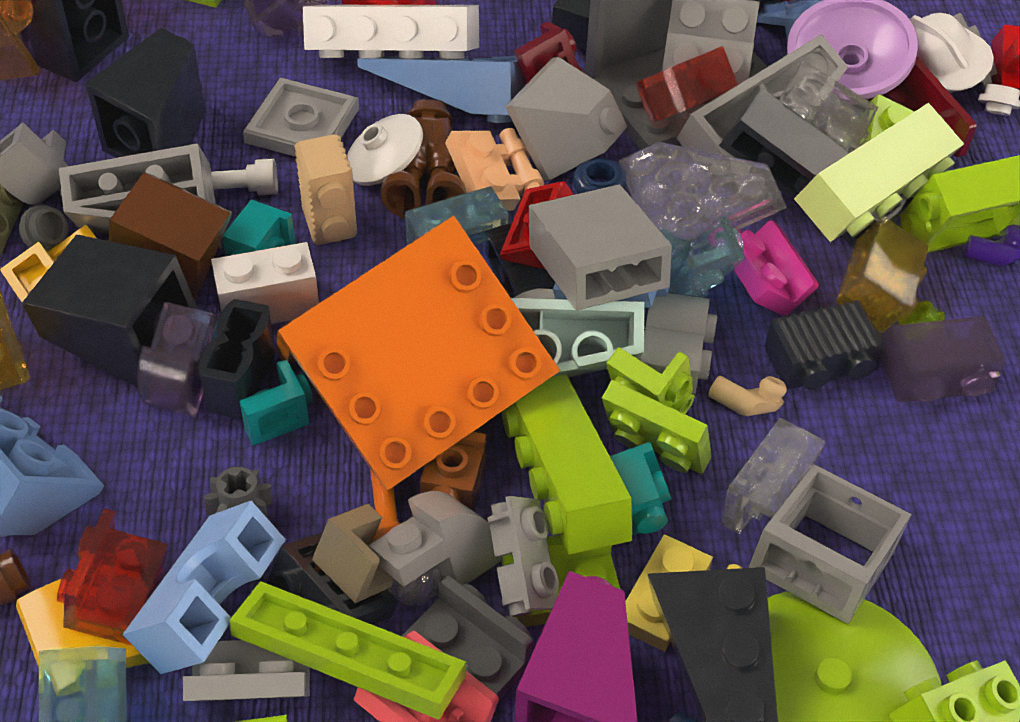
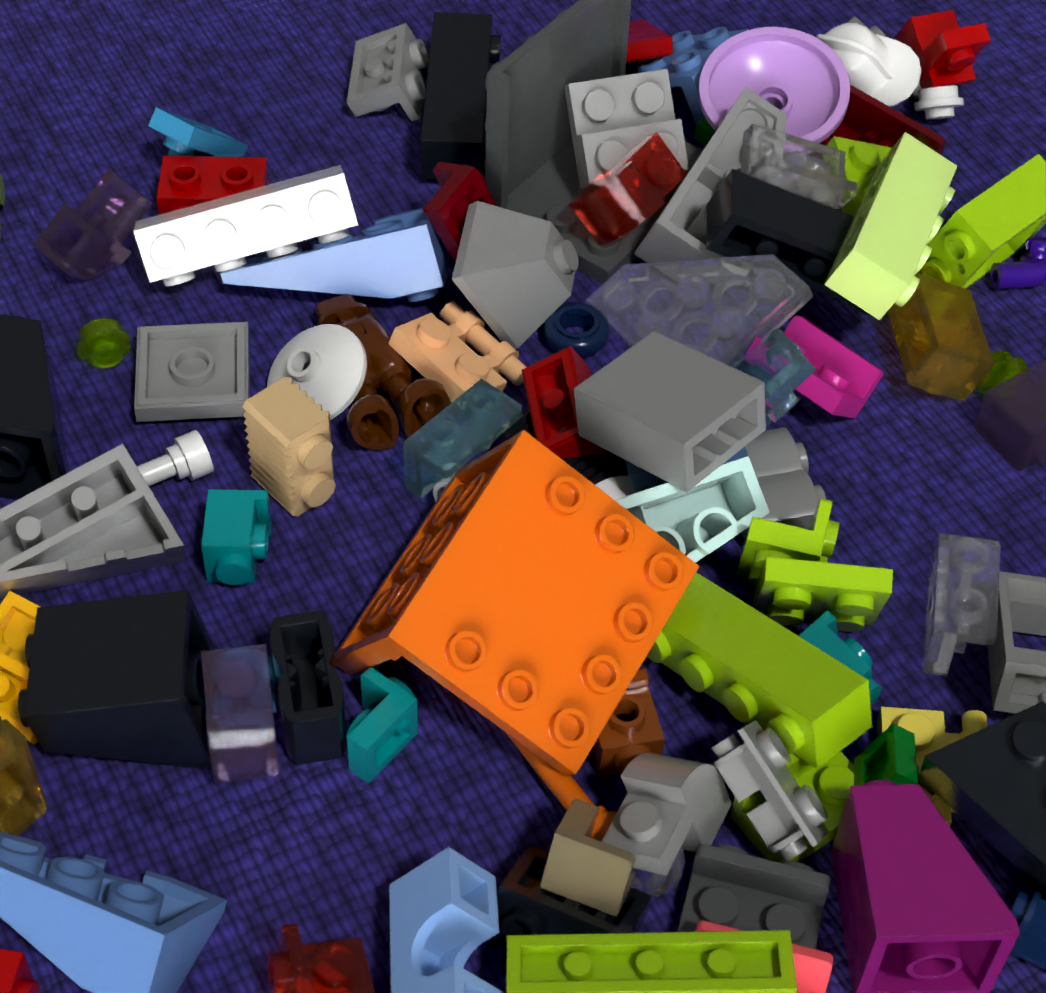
camera: 25 degrees left, 0 degrees up
(171, 222) = (139, 552): reddish brown slope -> none
(237, 487) = (402, 845): dark grey gear -> none
(252, 82) = (103, 343): none -> clear neon green plate
(270, 277) = (284, 578): white brick -> none
(632, 573) = (888, 758): none -> green plate
(749, 401) = (879, 525): tan arm -> none
(824, 345) = (922, 438): black brick -> none

